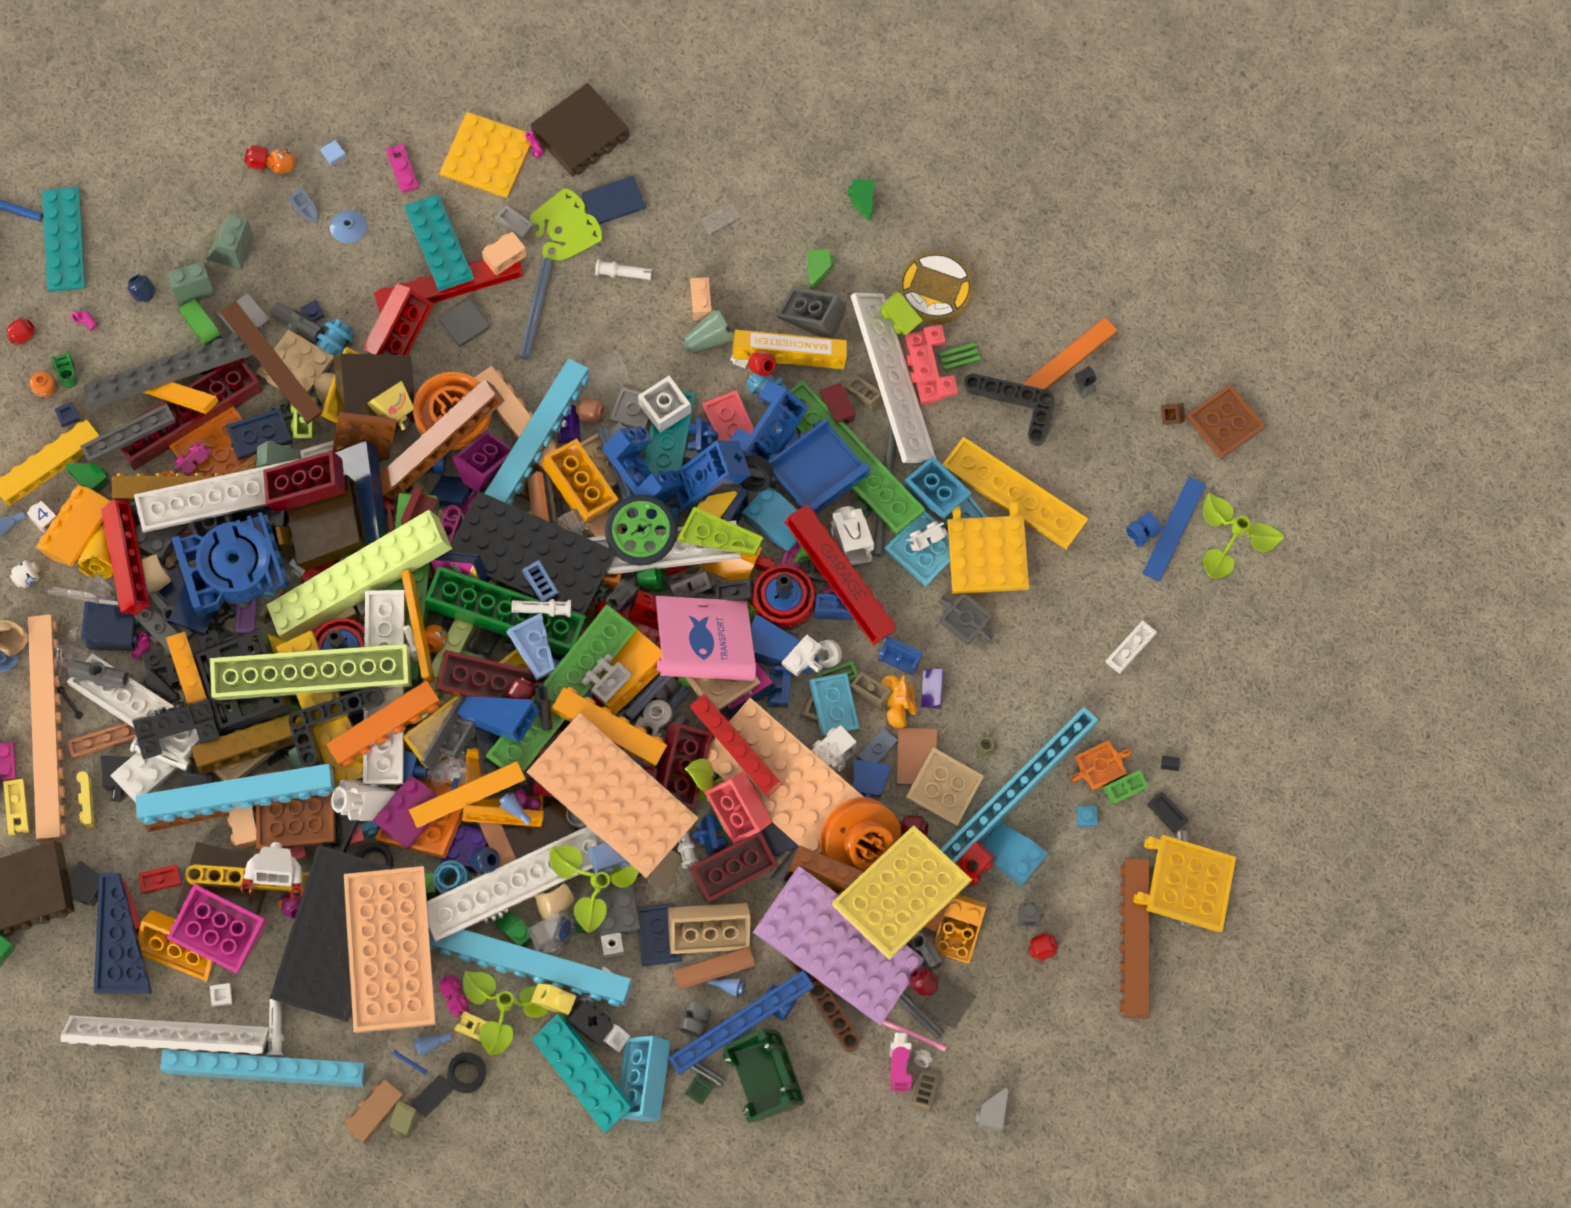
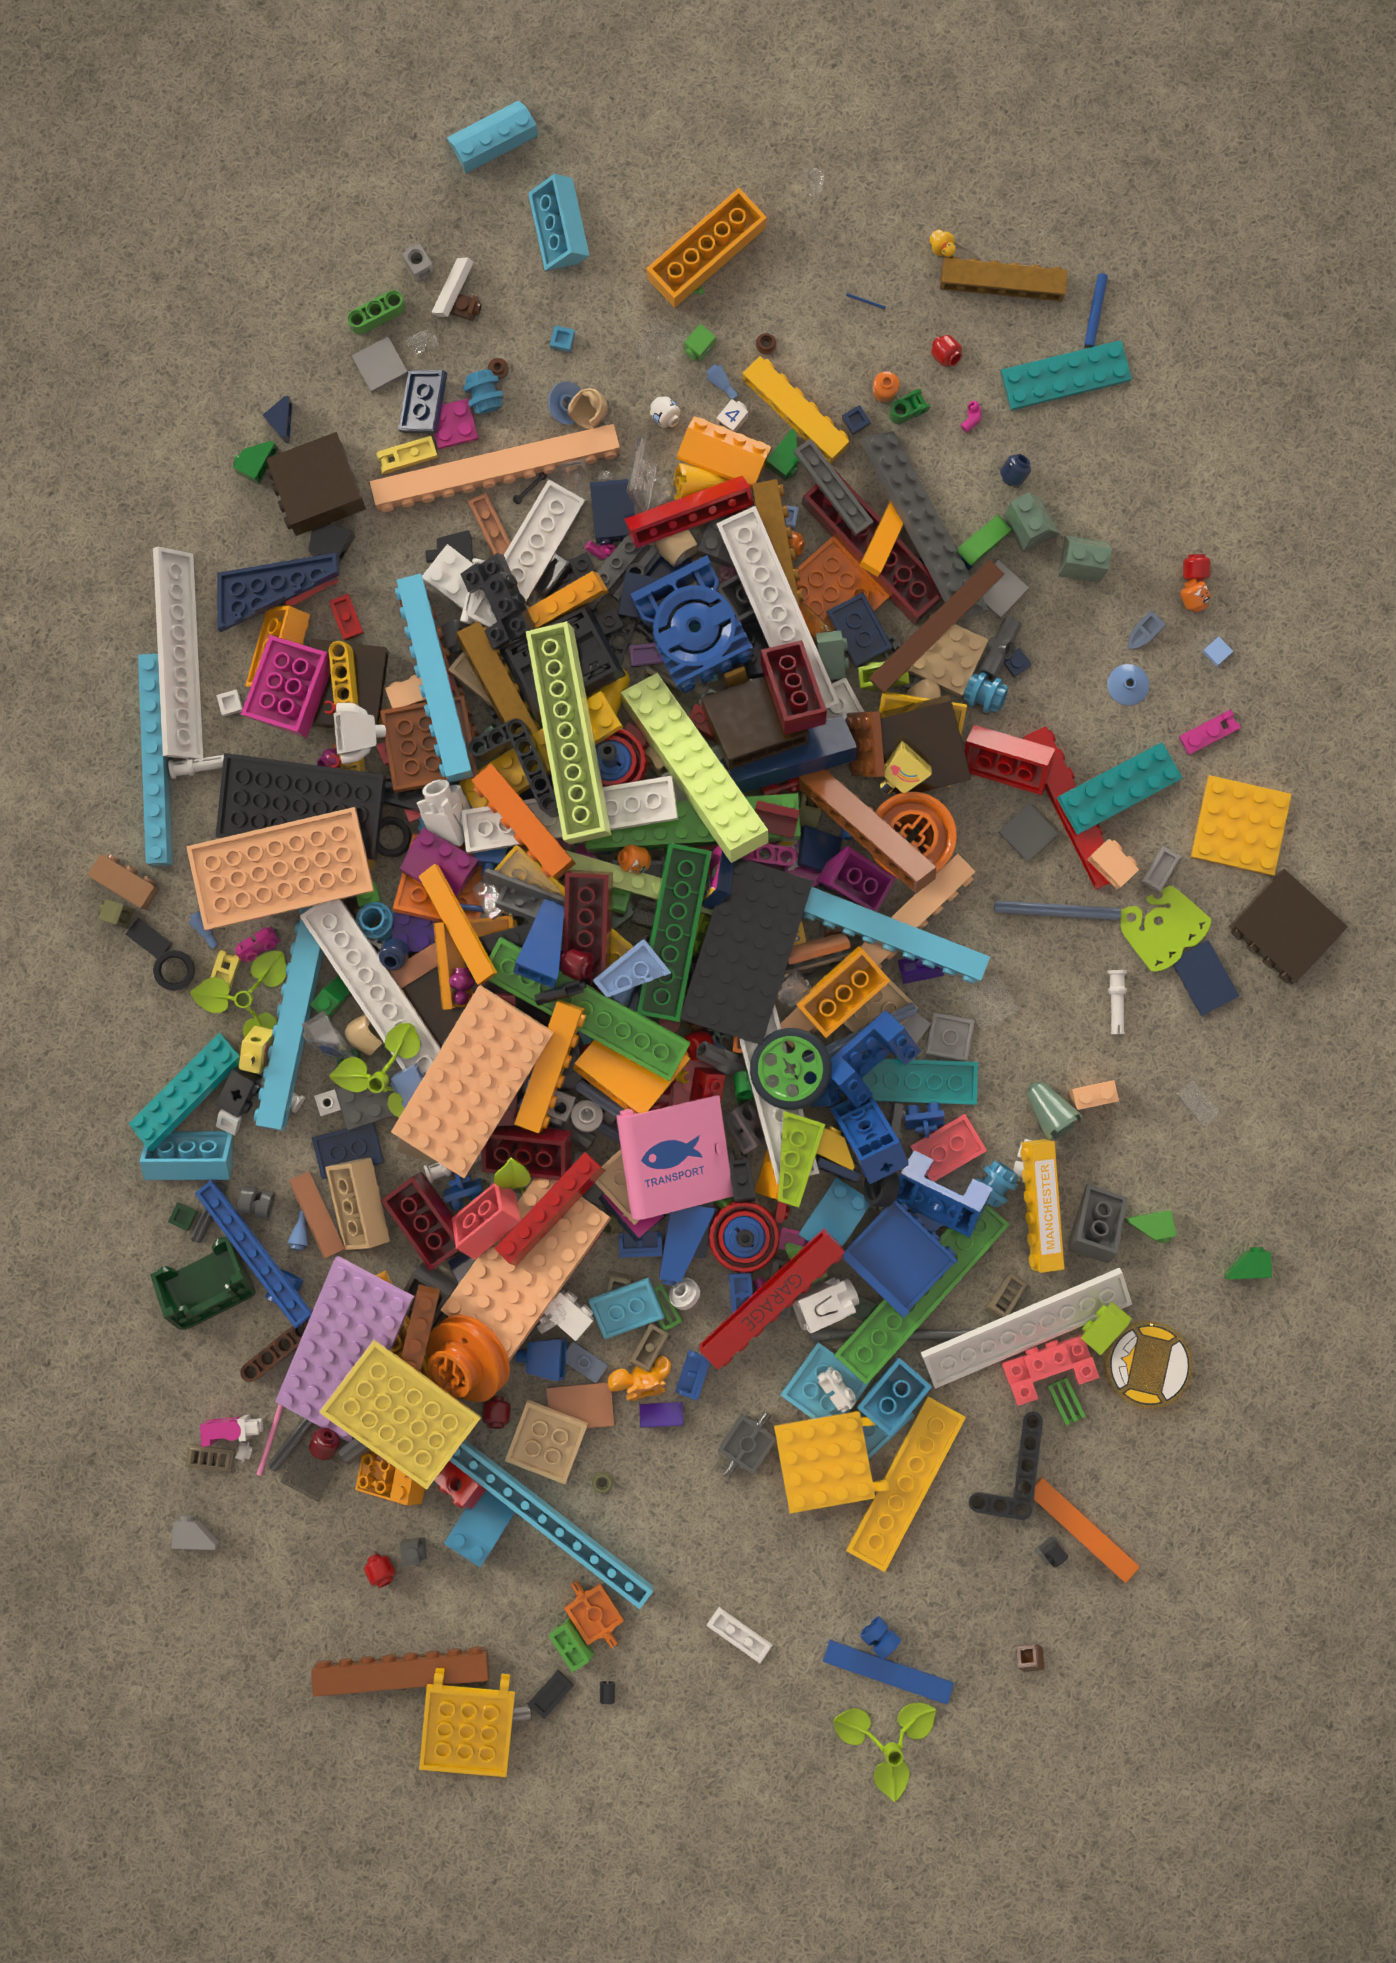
camera: 85 degrees right, 15 degrees up
(86, 800) = (422, 525): light yellow plate -> none
(89, 672) = (555, 520): dark grey piece -> none
(196, 453) = (813, 556): dark pink hinge -> none
(409, 635) = (615, 842): white bar -> none
(411, 1063) = (182, 911): blue piece -> none
(418, 626) = (638, 840): light orange tile -> none
(511, 805) = (449, 973): medium blue cone -> none
(535, 144) = (1263, 877): dark pink arm -> none
(542, 572) = (720, 948): medium blue slope -> none
(552, 607) = (678, 982): white pin -> none
(590, 410) = (939, 990): nougat head -> none
(610, 683) = (599, 1061): light grey plate -> none
(664, 404) = (953, 1072): white brick -> none
(762, 363) = (1014, 1177): red head -> none
(803, 656) = (670, 1268): white plate -> none
(838, 403) = (985, 1268): dark red panel -> none
(1087, 816) = (535, 1603): dark azure plate -> none
(1225, 421) = (1028, 1721): dark orange plate -> none

